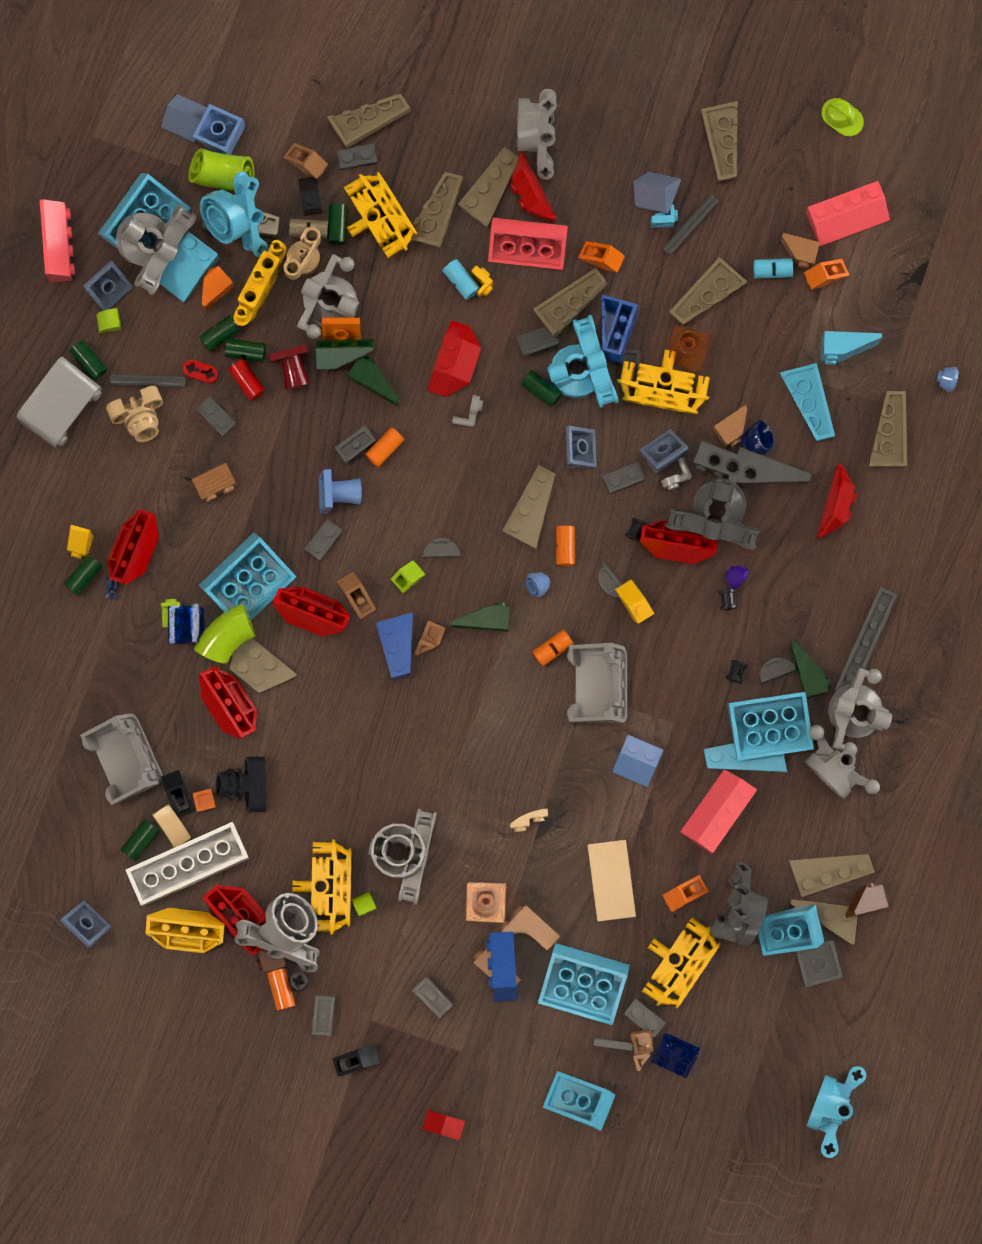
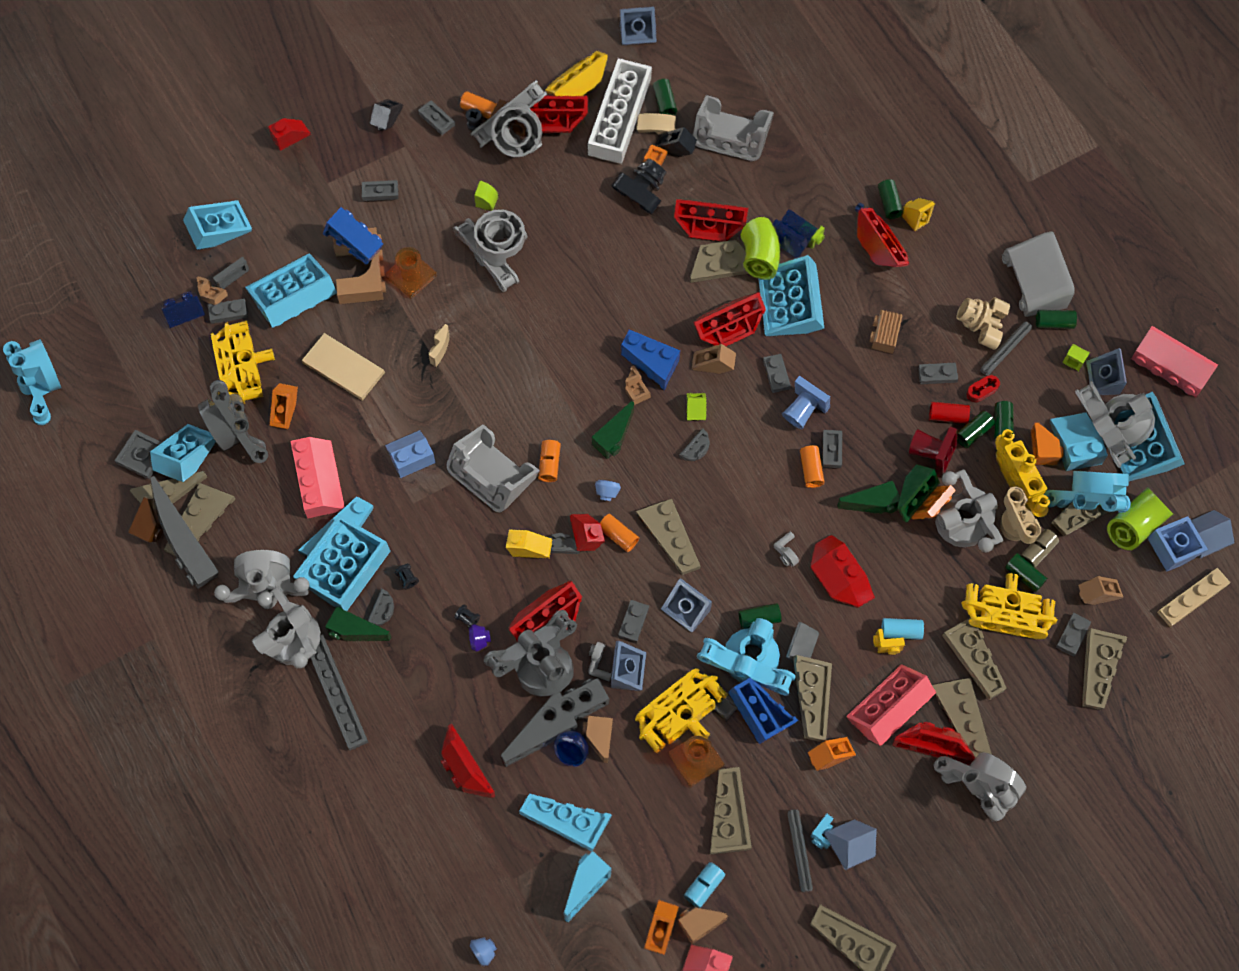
camera: 130 degrees right, 15 degrees down
(250, 92) = (1193, 597): none -> tan plate
(310, 196) = (1067, 571): black slope -> none
(341, 885) = (520, 194): yellow piece -> none
(585, 569) = (586, 532): none -> red slope
(635, 530) = (587, 598): black bush -> none
(860, 857) = (182, 541): none -> dark grey slope
(891, 434) = (479, 860): dark tan wing -> none

